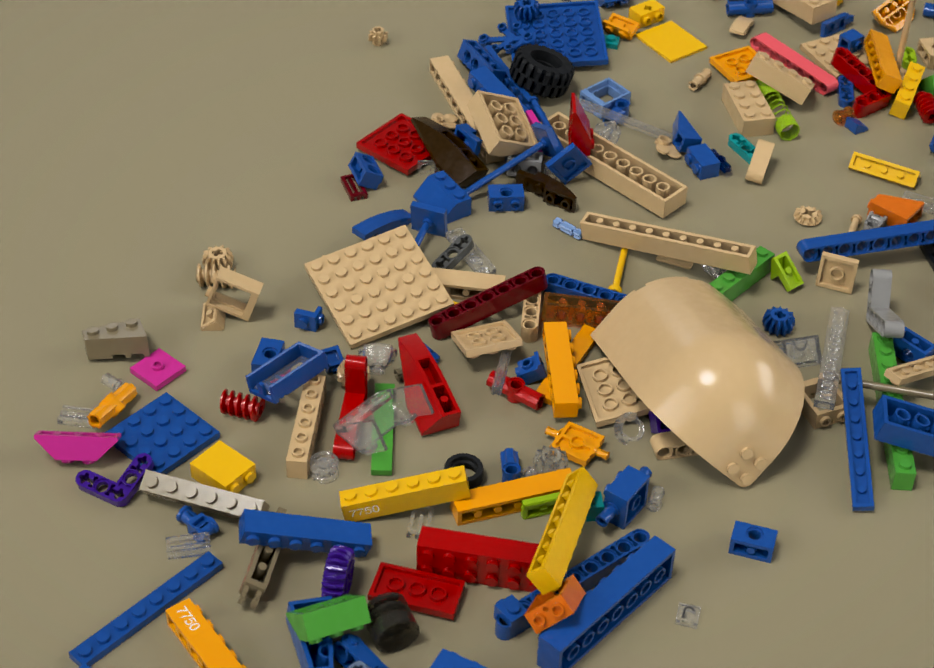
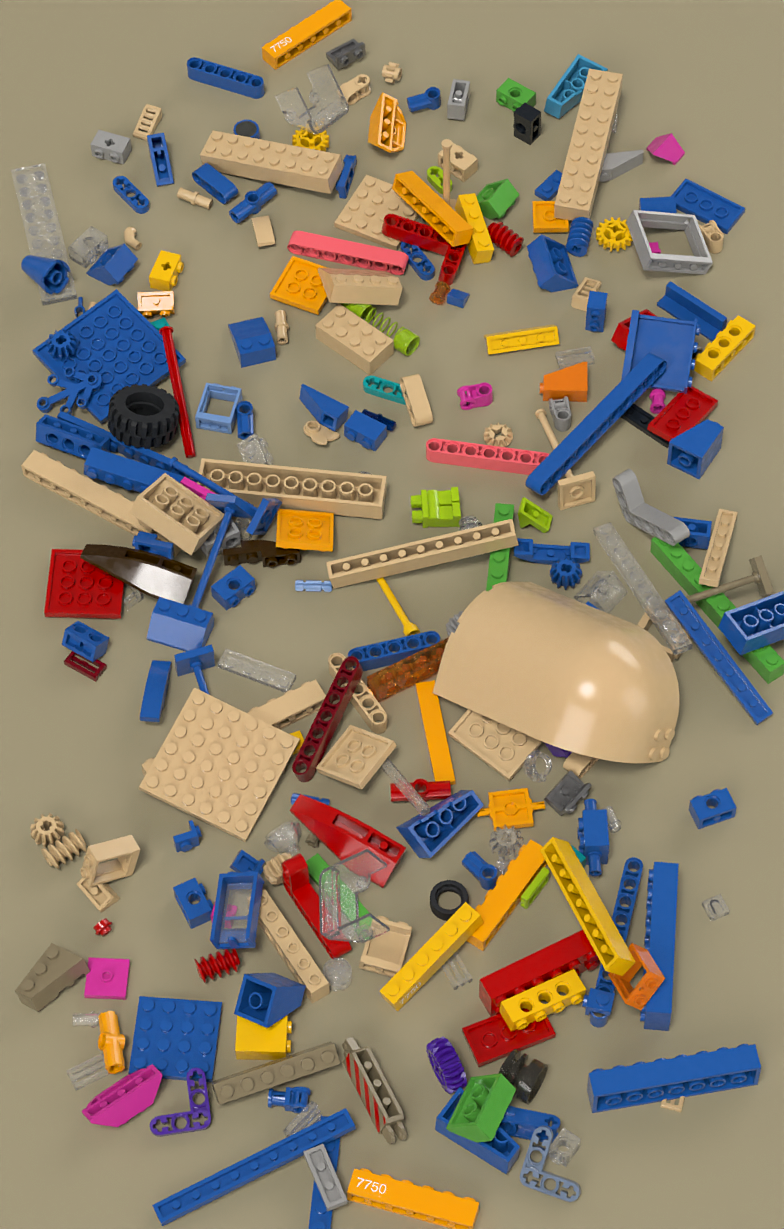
camera: 35 degrees left, 15 degrees up
(120, 548) = (253, 1167): none -> blue plate
(160, 589) = (325, 1177): none -> light grey plate
(189, 336) = (103, 927): none -> red plate
(250, 441) = (268, 998): none -> blue slope
(303, 532) = (392, 1049): blue brick -> none
(378, 467) = (387, 951): none -> tan panel
(446, 120) = (96, 530): tan plate -> none
(461, 246) = (254, 671): dark grey beam -> none
(463, 579) = (548, 991): none -> yellow brick
(501, 414) = (434, 830): none -> blue wedge
(531, 369) = (422, 760): blue brick -> none
(561, 370) = (441, 745): light orange brick -> none
(579, 127) = (251, 478): red slope -> none
(592, 189) = (304, 530): none -> light orange plate
(608, 36) = (166, 333): none -> red axle
(623, 119) = (262, 427): clear axle -> none
(635, 456) = (567, 793): none -> flat silver bracket
(668, 78) = (252, 342): none -> blue slope
(671, 41) = (213, 291): yellow piece -> none
(713, 226) = (437, 508): none -> lime hips
(760, 292) = (550, 553): none -> blue slope
(776, 215) = (477, 455): none -> coral beam
(813, 183) = (476, 396): none -> dark pink piece
(851, 40) = (383, 196): blue brick -> none

